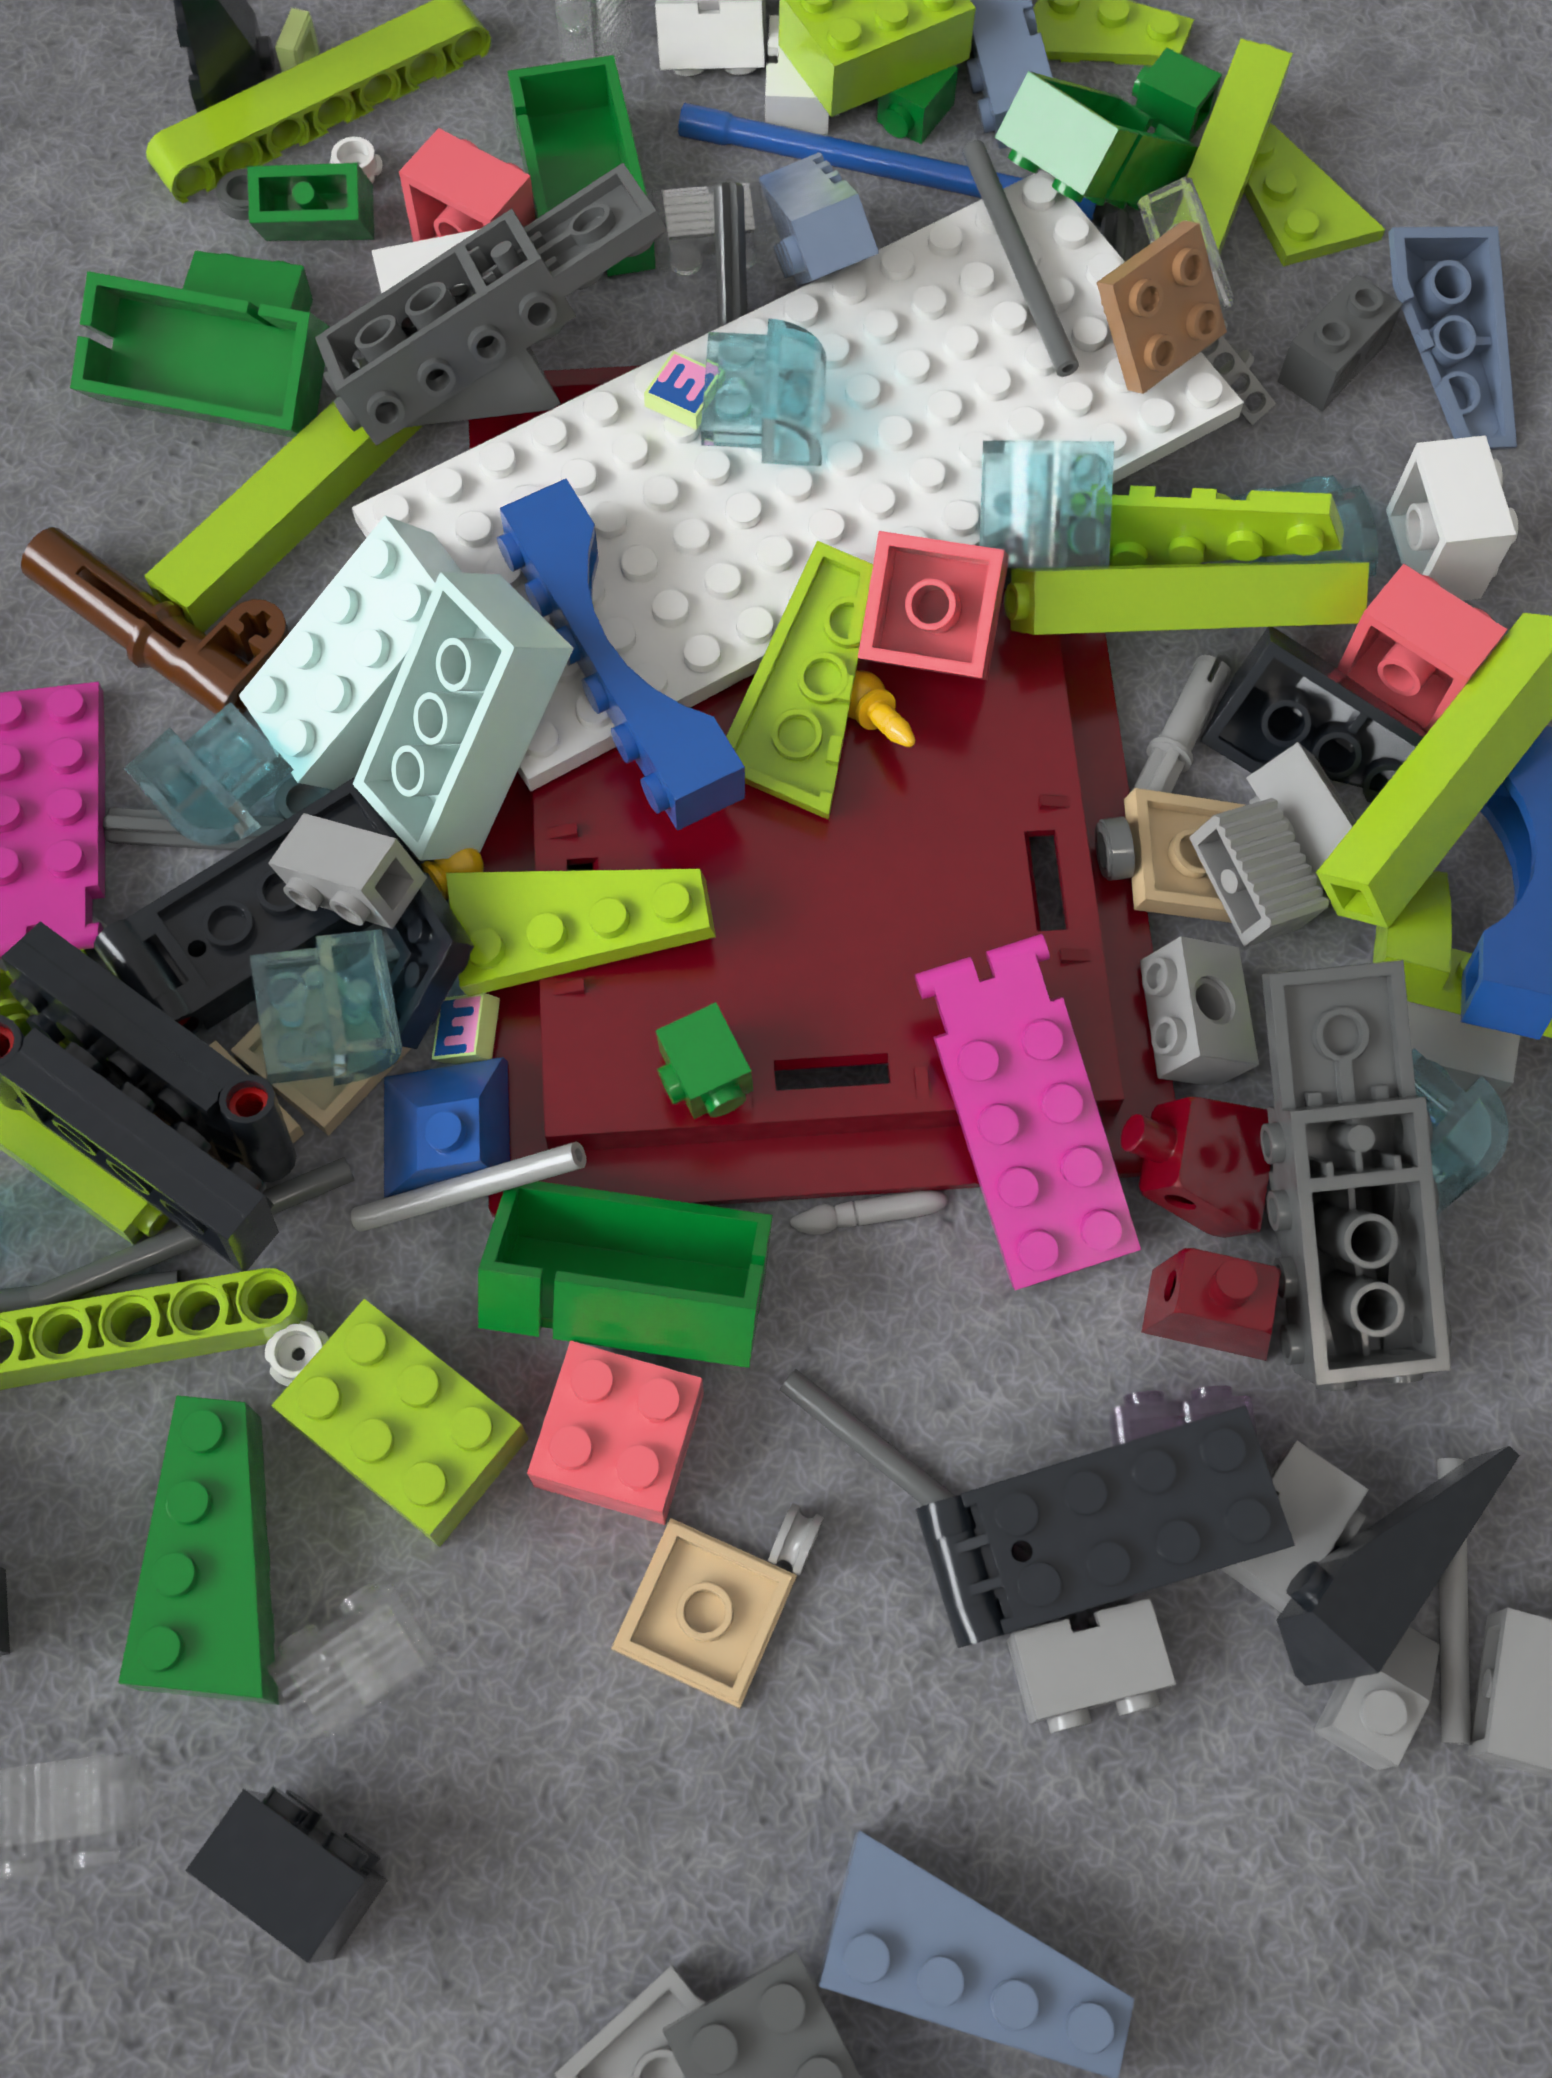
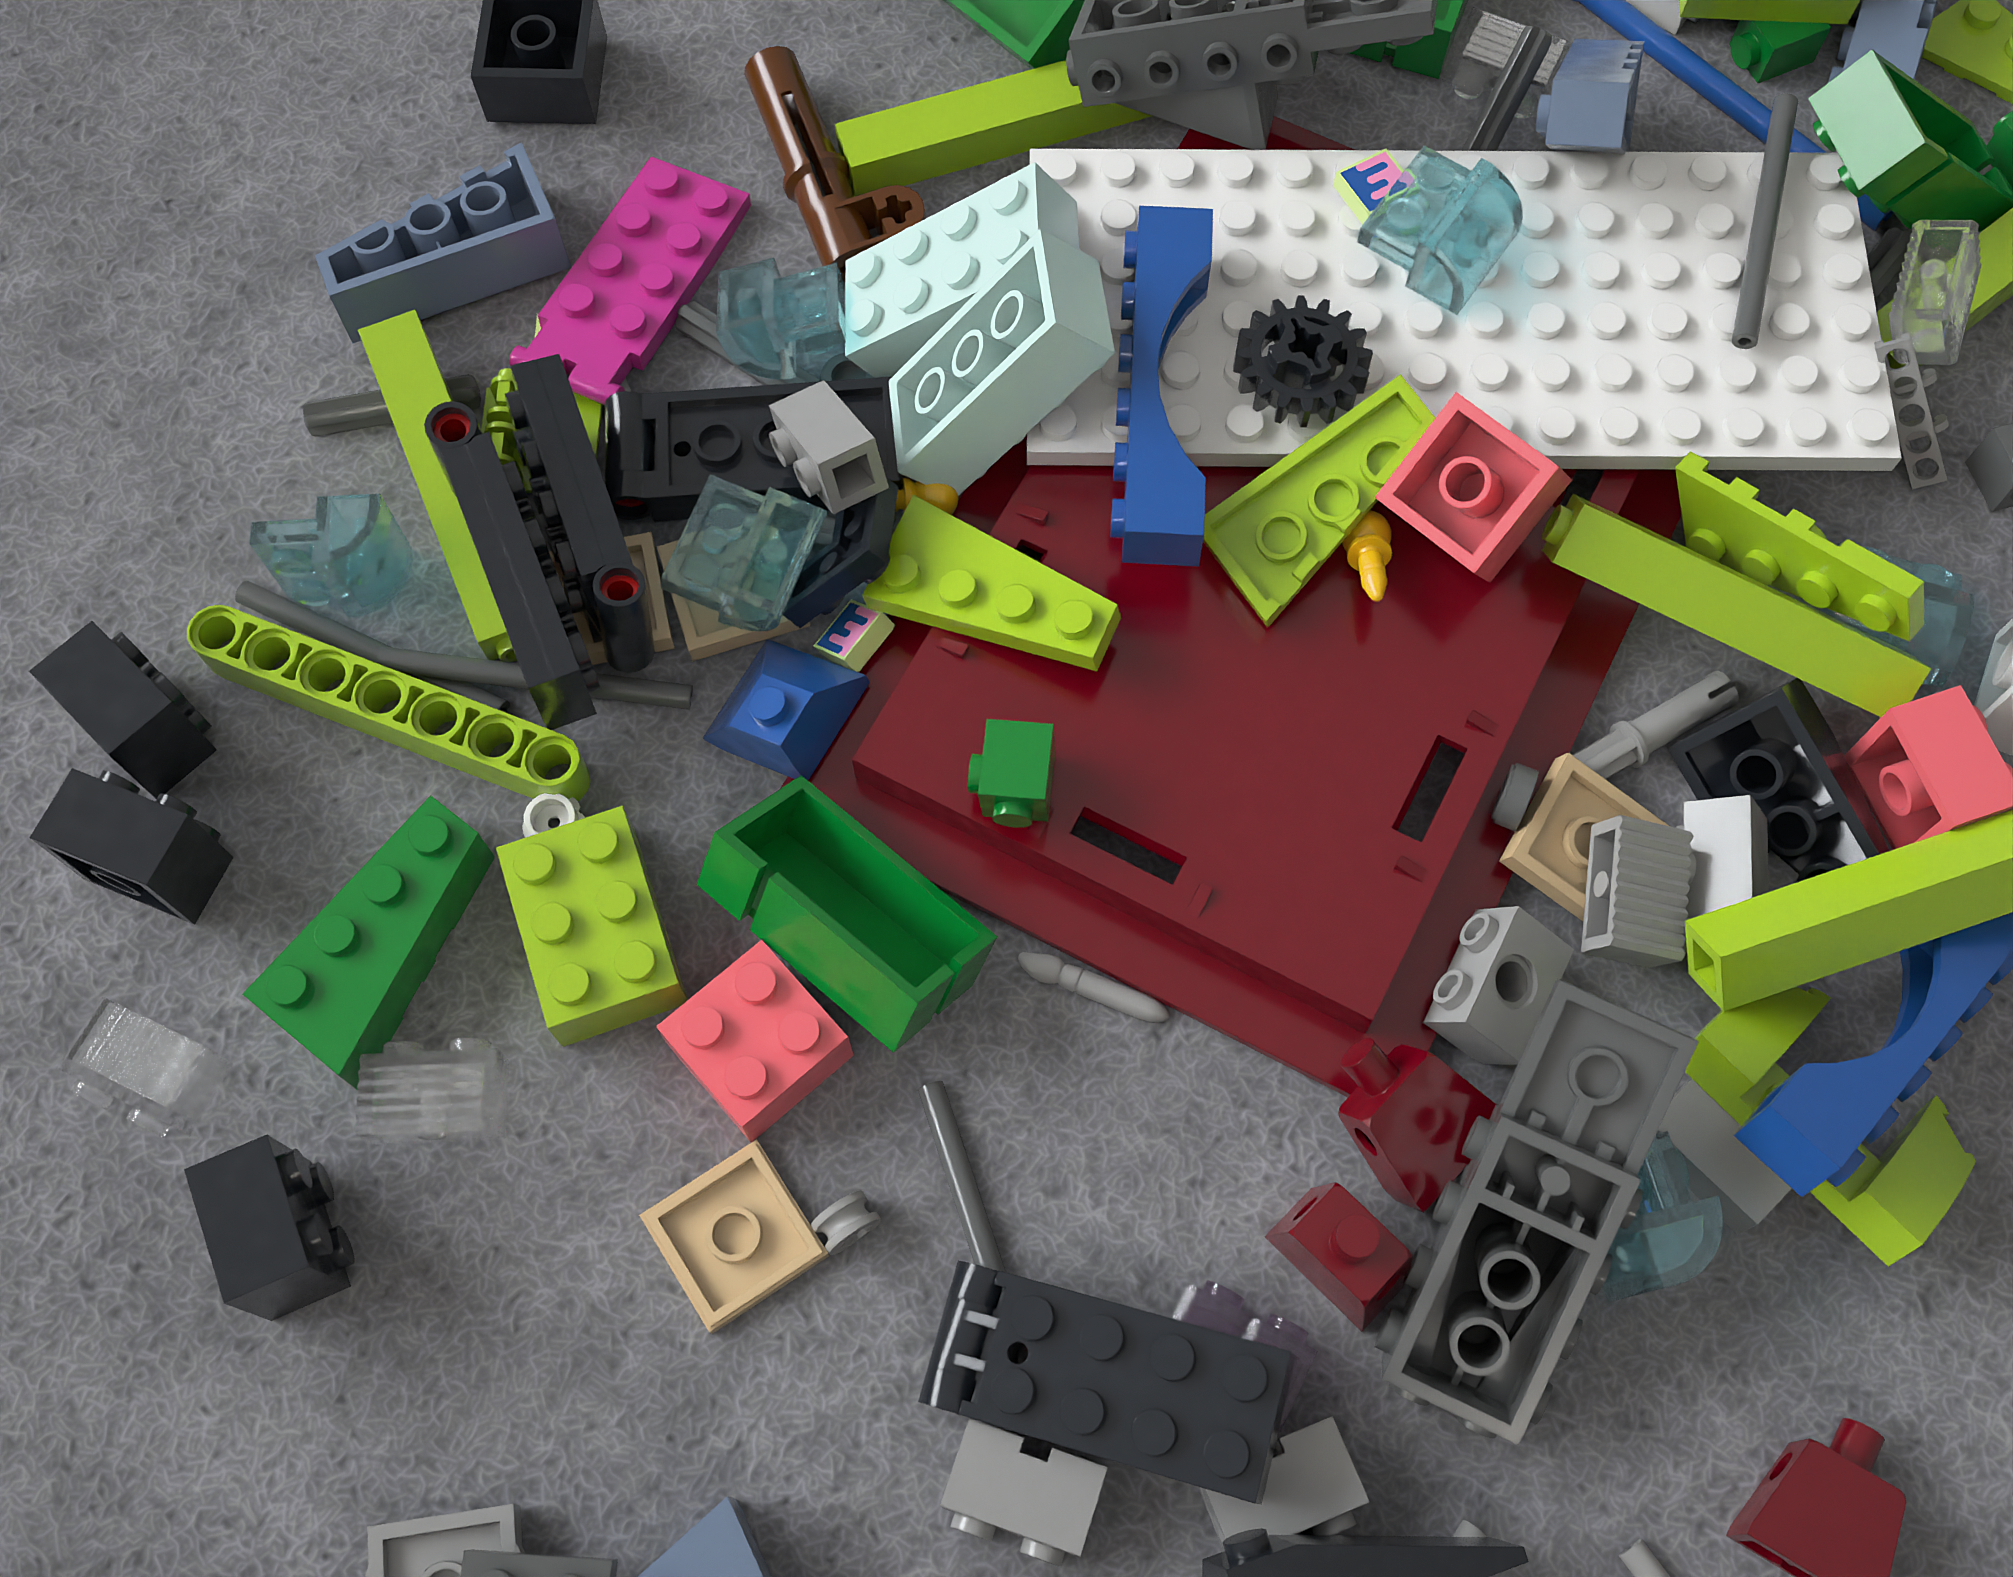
camera: 35 degrees right, 0 degrees up
(469, 1186) = (766, 765): light grey piece -> none
(723, 572) = (1302, 360): none -> black gear
(1028, 1115) = (1274, 983): dark pink hinge -> none
(1047, 502) = (1643, 452): clear light blue brick -> none
(1162, 306) = (1867, 326): medium nougat plate -> none

